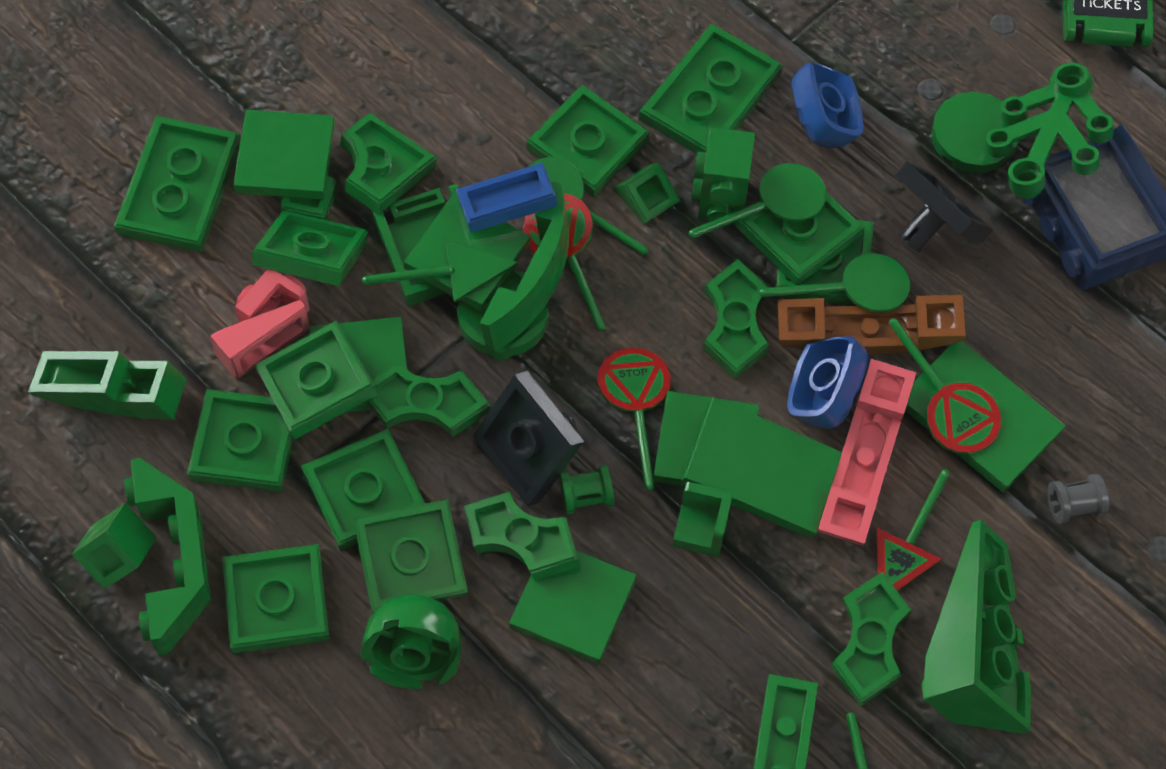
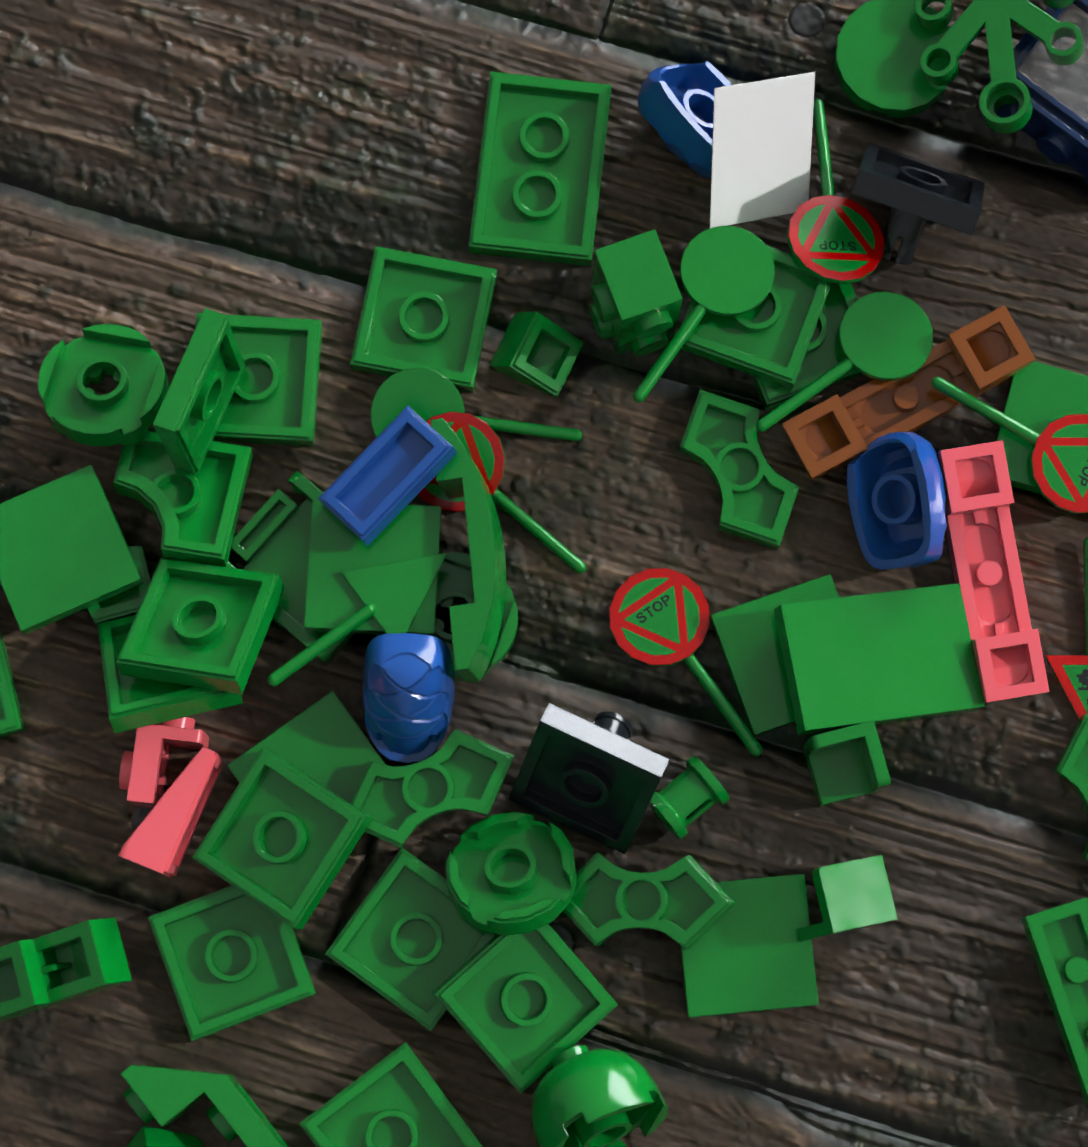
camera: 30 degrees left, 15 degrees up
(342, 231) = (200, 625): none -> green tile
(364, 97) = (109, 418): none -> green plate
(421, 98) = (200, 392): none -> green tile
(445, 333) = (407, 694): none -> blue piece
(446, 474) = (511, 874): none -> green tile
(464, 124) = (279, 383): none -> green tile
(655, 598) = (851, 897): none -> panel
(854, 133) = (761, 148): none -> white sticker
(873, 206) = (833, 233): none -> piece

